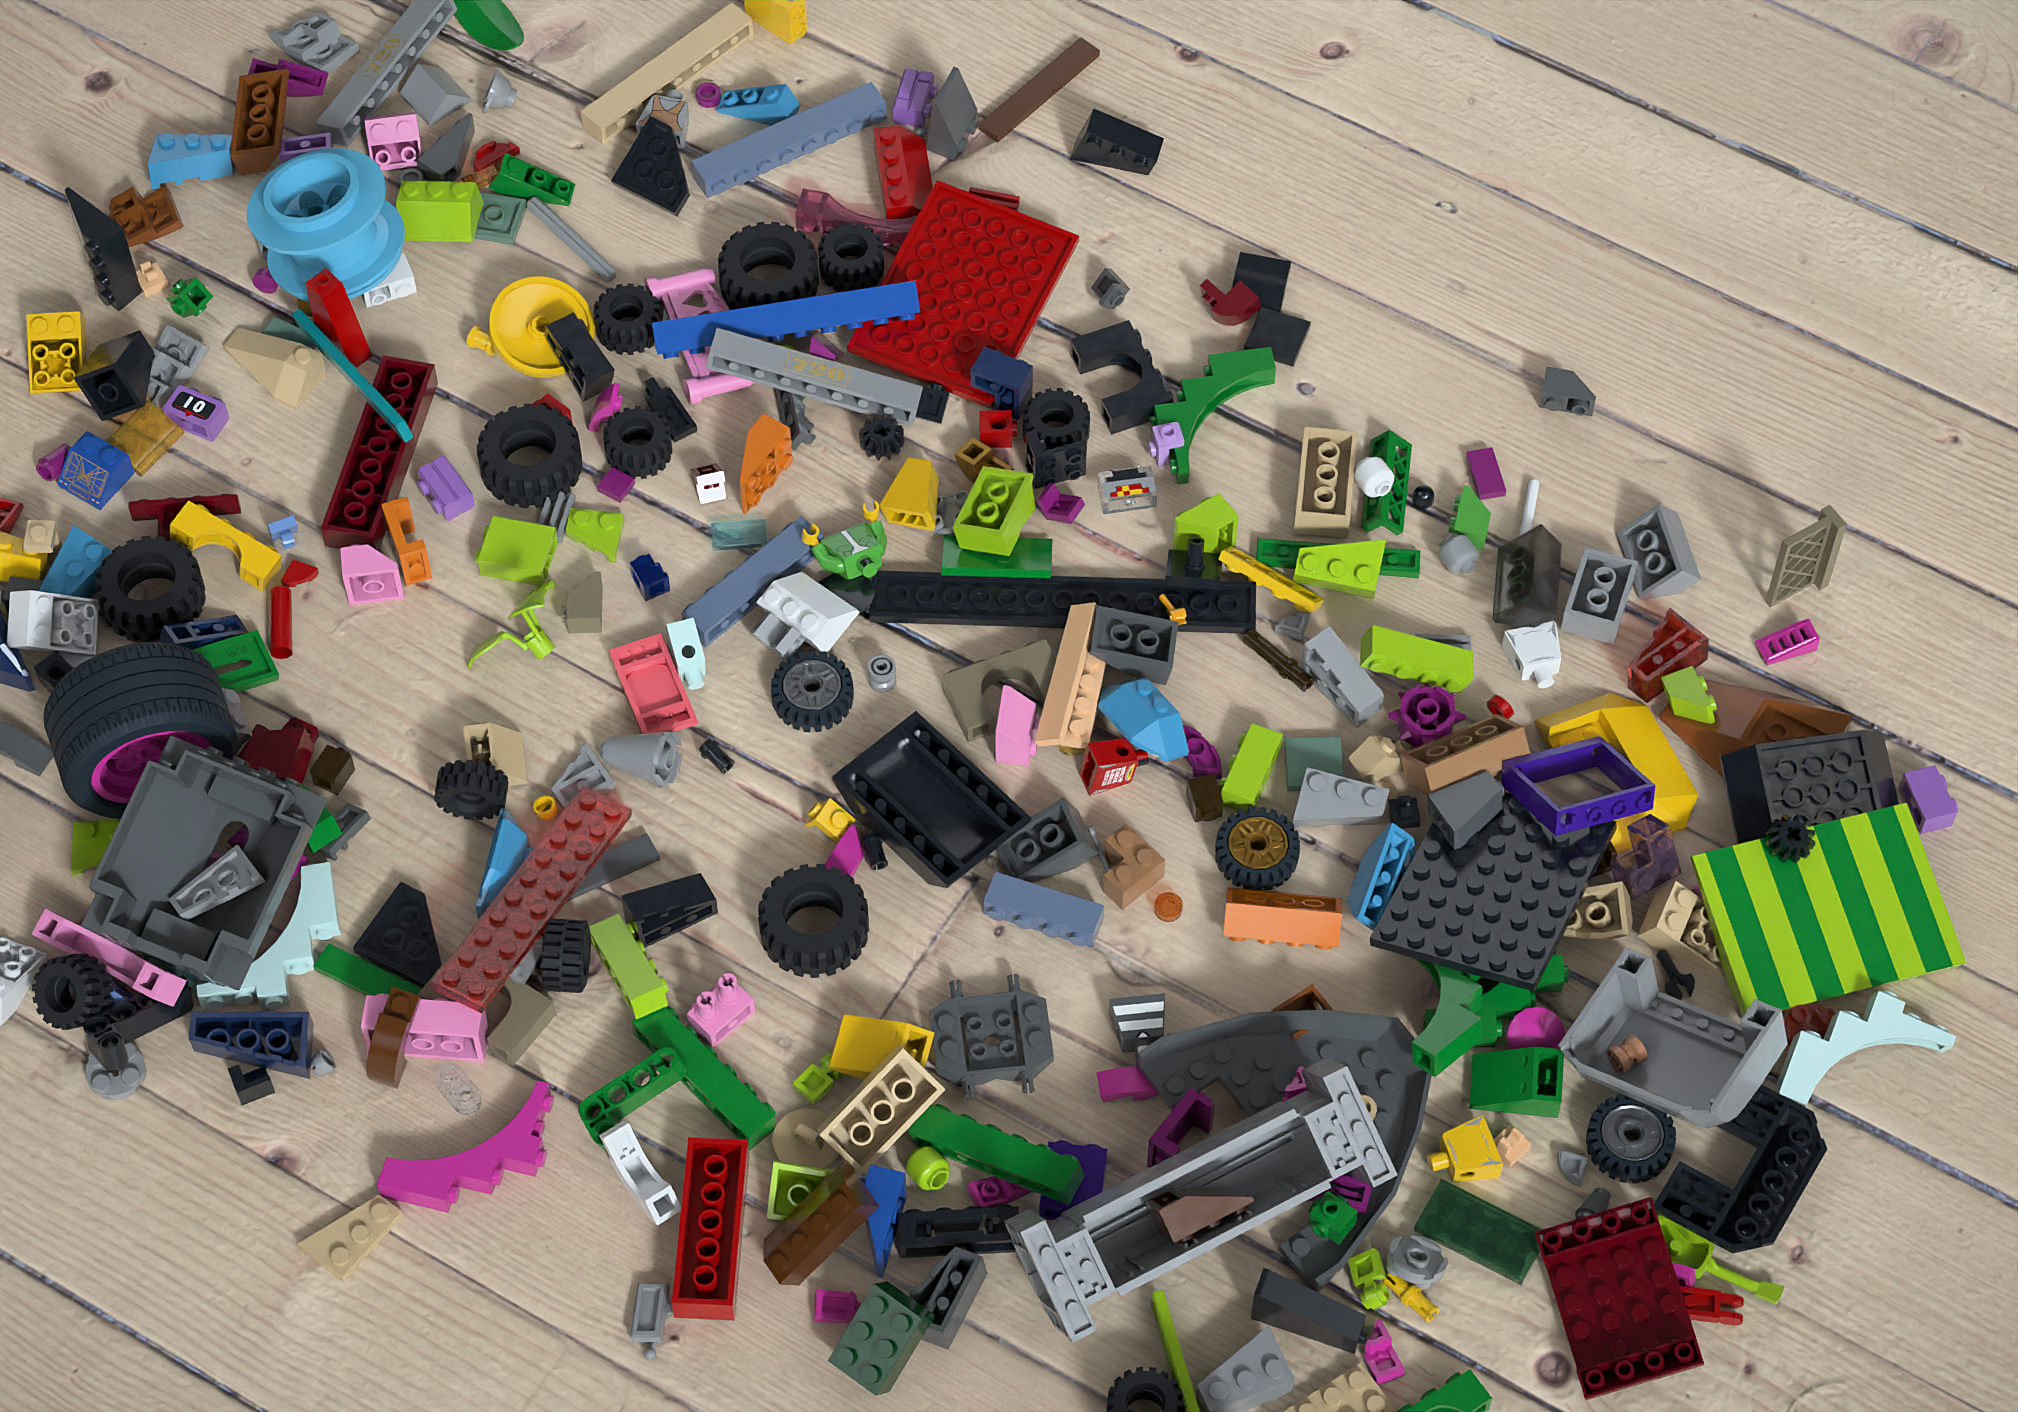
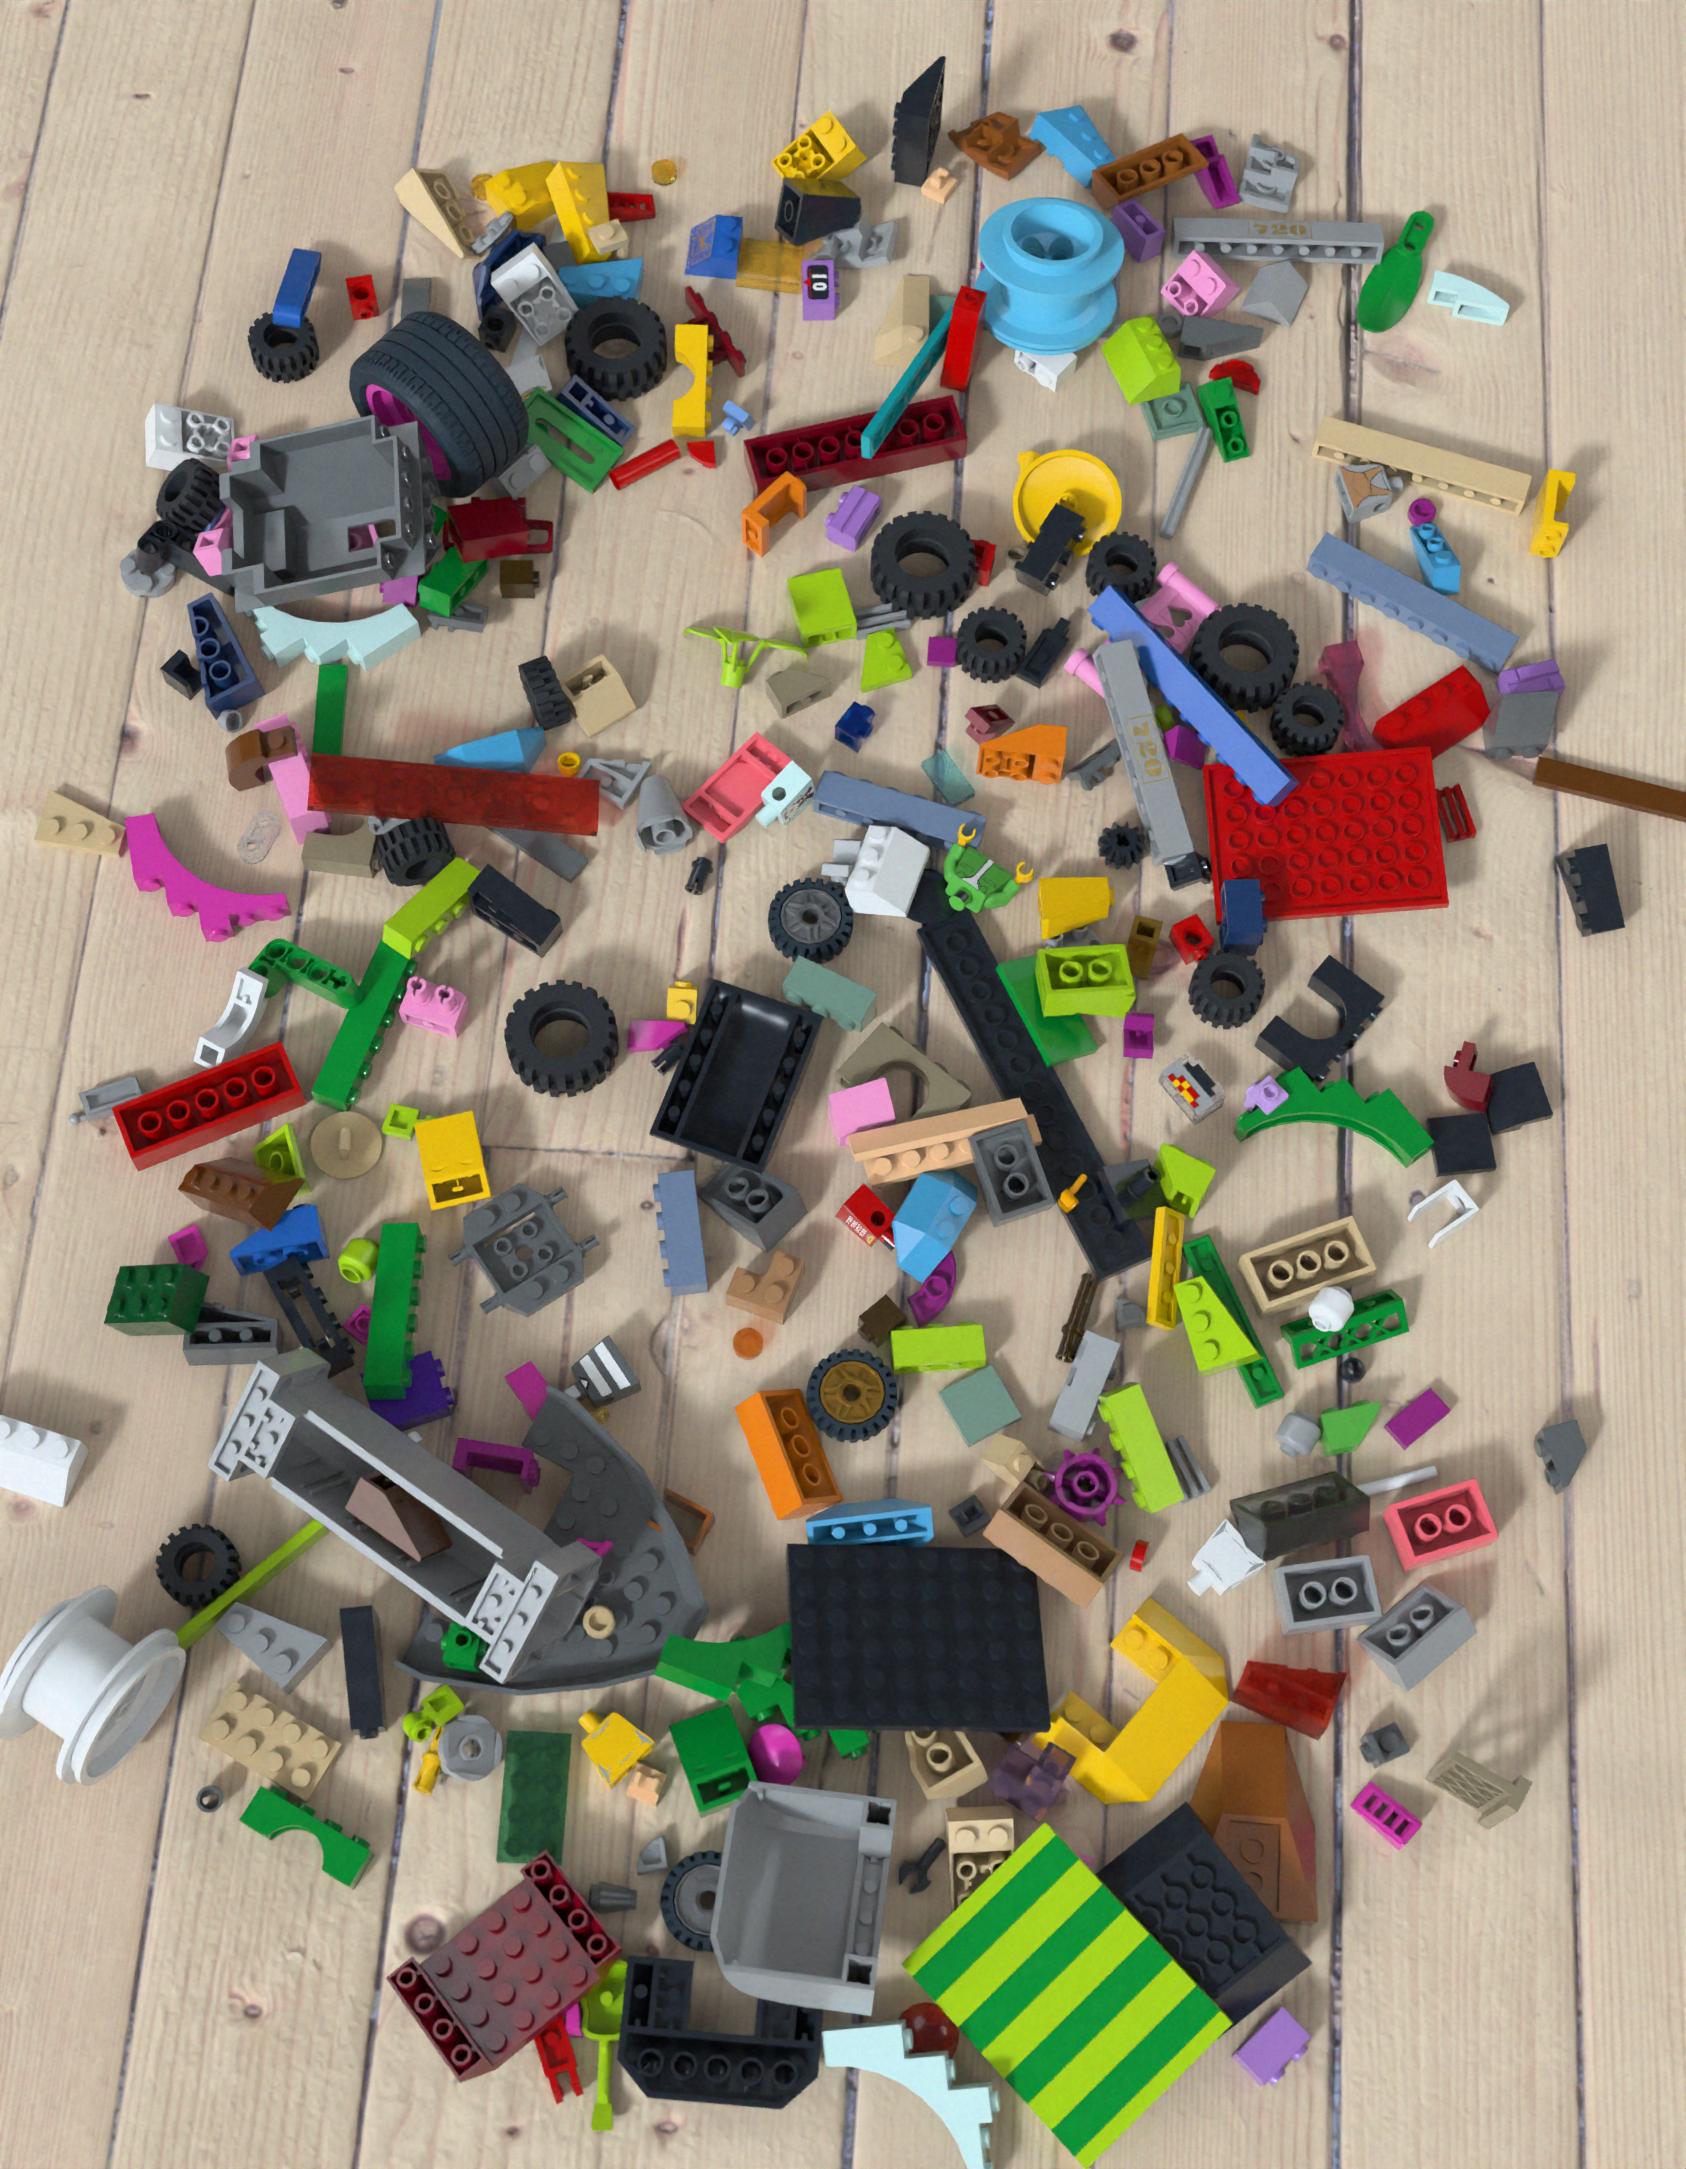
camera: 60 degrees right, 10 degrees up
(51, 465) = (703, 211): magenta cone -> none
(189, 297) = (928, 231): green brick -> none
(217, 884) = (329, 543): light grey wing -> none
(369, 575) = (719, 500): bright pink slope -> none
(402, 937) = (383, 717): black plate -> none
(482, 177) = (1194, 373): clear orange plate -> none
(499, 93) = (1305, 342): light grey piece -> none
(563, 389) = (1014, 554): none -> dark tan hinge
(605, 406) = (1010, 599): dark pink slope -> none
(655, 168) = (1301, 507): black plate -> none
(880, 1109) = (383, 1187): tan brick -> none
(882, 673) = (861, 975): light grey wheel -> none
(897, 698) = (830, 995): none -> sand green slope
(1054, 464) = (1172, 1008): black bracket -> none
(1092, 832) = (792, 1238): light grey hinge -> none
(1110, 289) = (1416, 965): dark grey bracket -> none
(1337, 801) = (940, 1445): light grey wedge -> none
(1340, 360) = (1450, 1192): none -> white piece
(1381, 1357) = (360, 1761): dark pink slope -> none
(1465, 807) = (988, 1572): dark grey slope -> none
(1571, 758) = (1102, 1643): dark purple window -> none
(1582, 495) = (1439, 1525): none -> coral brick
(1627, 1054) = (788, 1854): nougat wheel -> none
(1688, 696) = (1250, 1737): lime slope -> none
(1732, 619) = (1383, 1745): none -> dark grey bracket
(1801, 842) = (1118, 1926): black gear -> none

